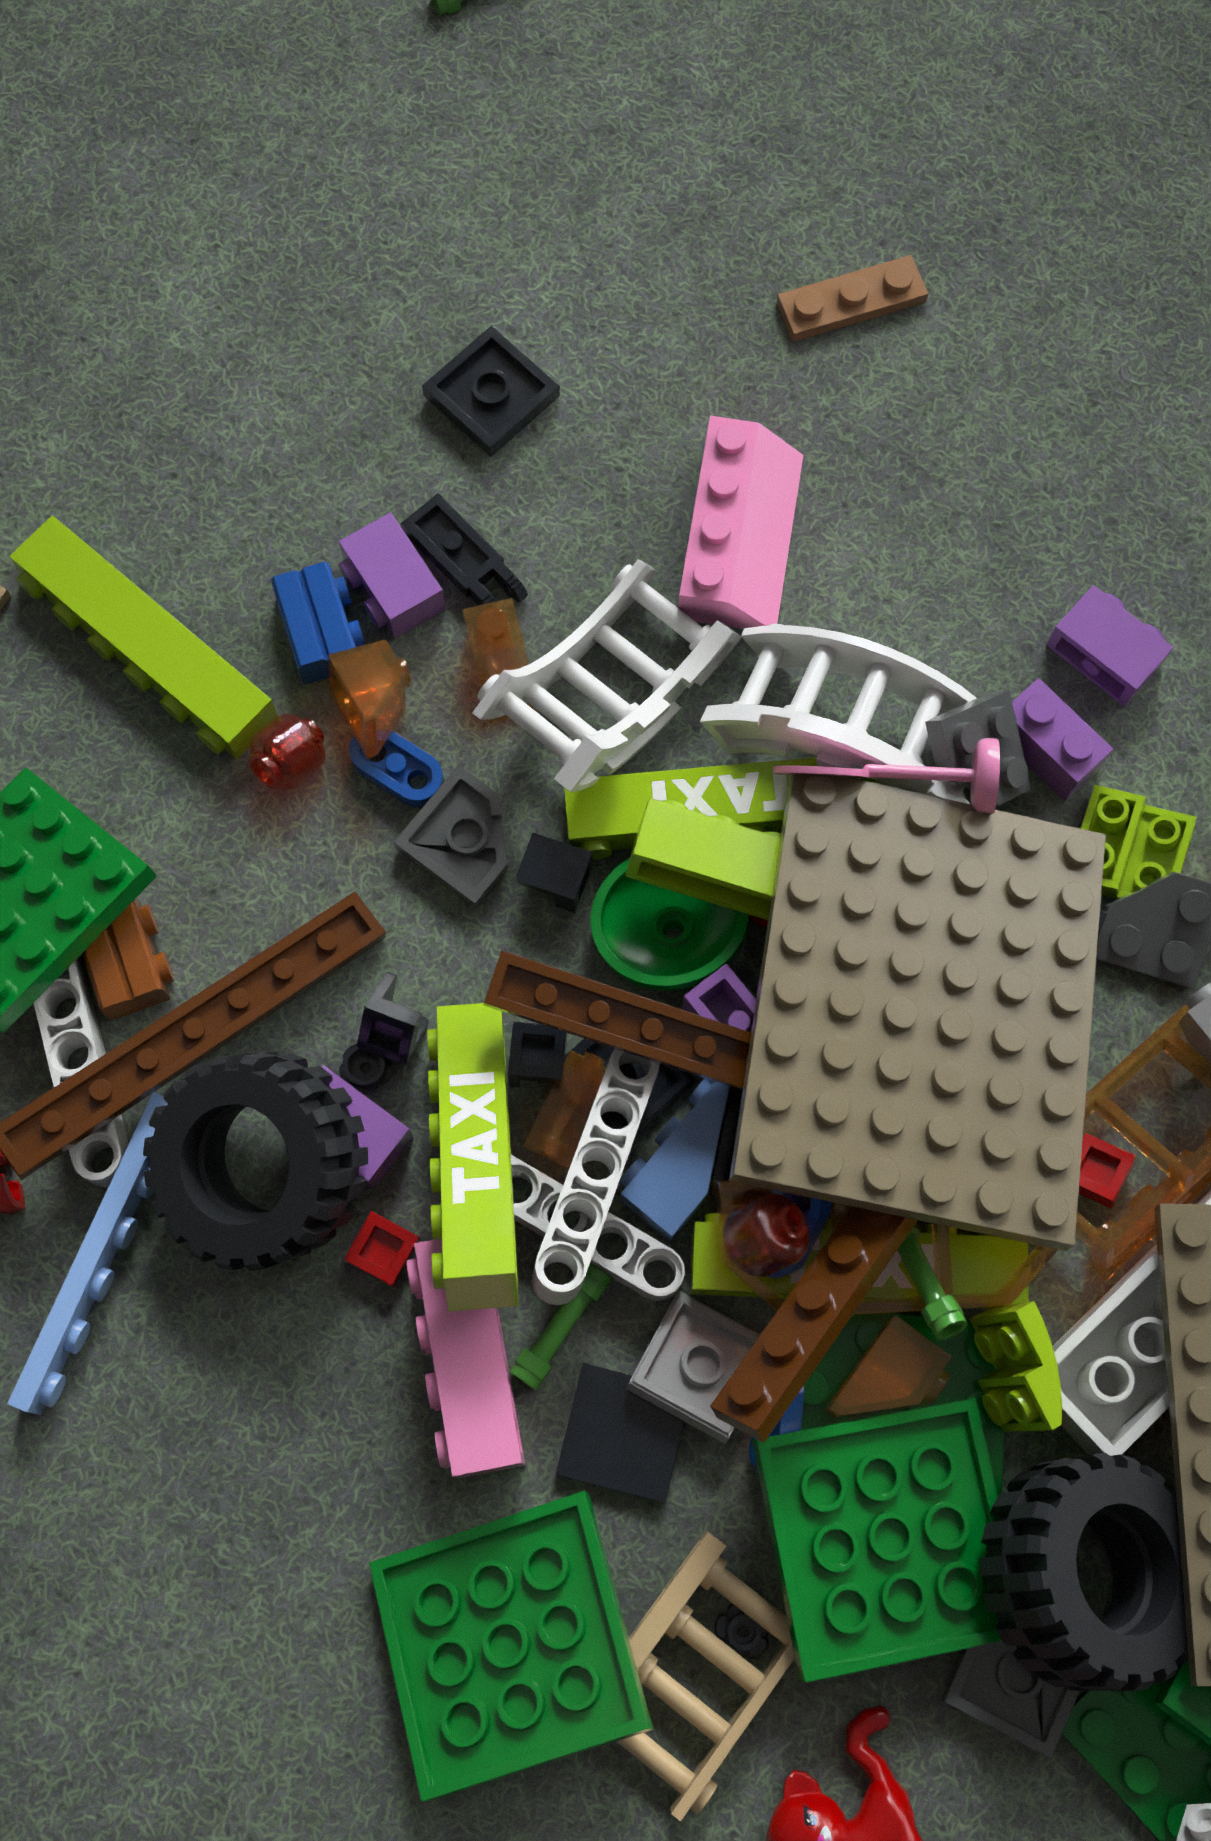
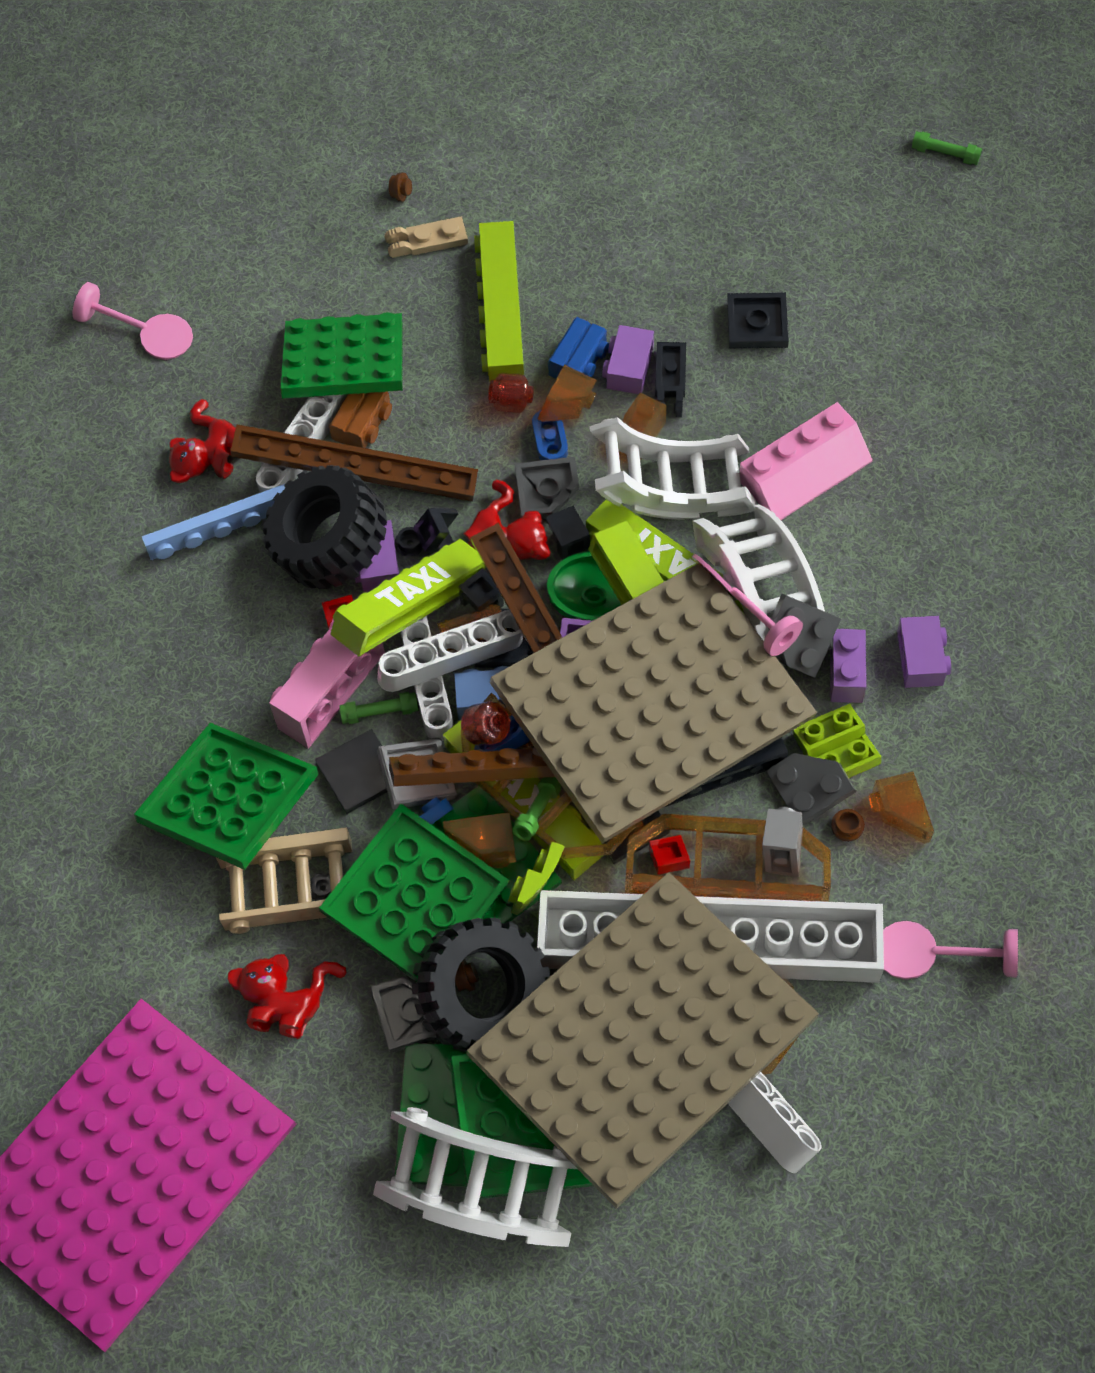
camera: 50 degrees right, 10 degrees down
(504, 923) = (524, 534): none -> red animal
(852, 298) = (971, 412): medium nougat plate -> none

